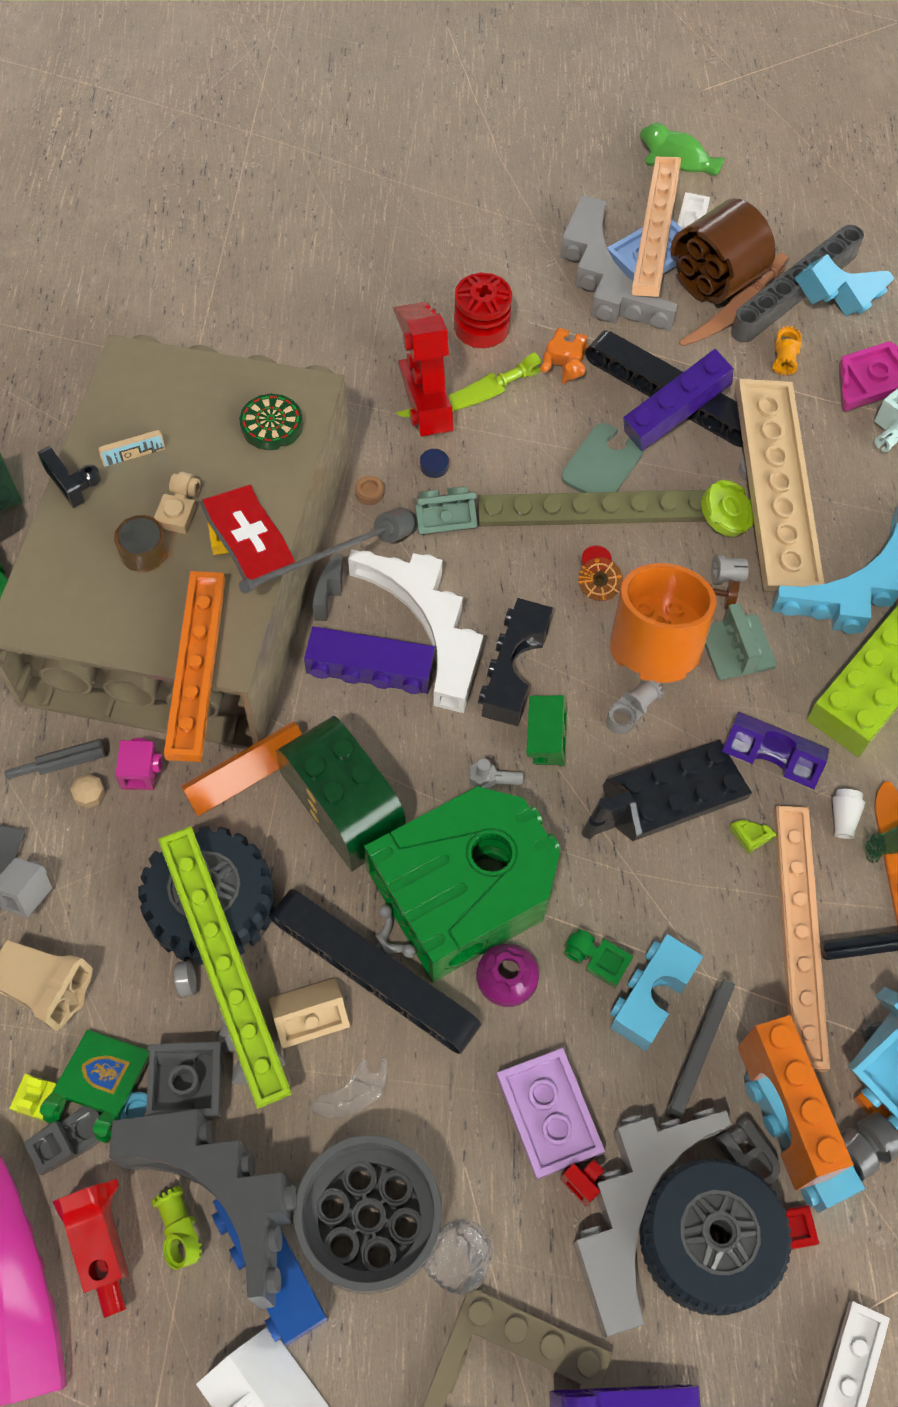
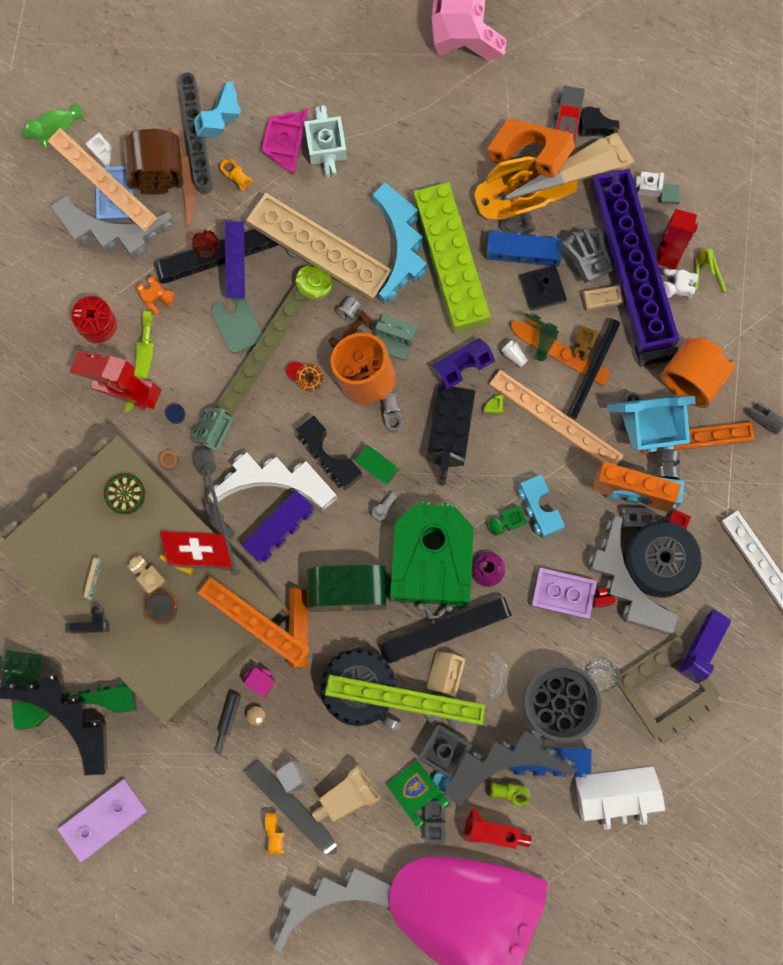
camera: 55 degrees left, 15 degrees up
(31, 1095) = (404, 827): neon yellow tile -> none
(669, 357) = (205, 244): none -> clear red hair
(699, 1050) = (579, 506): dark grey tile -> none

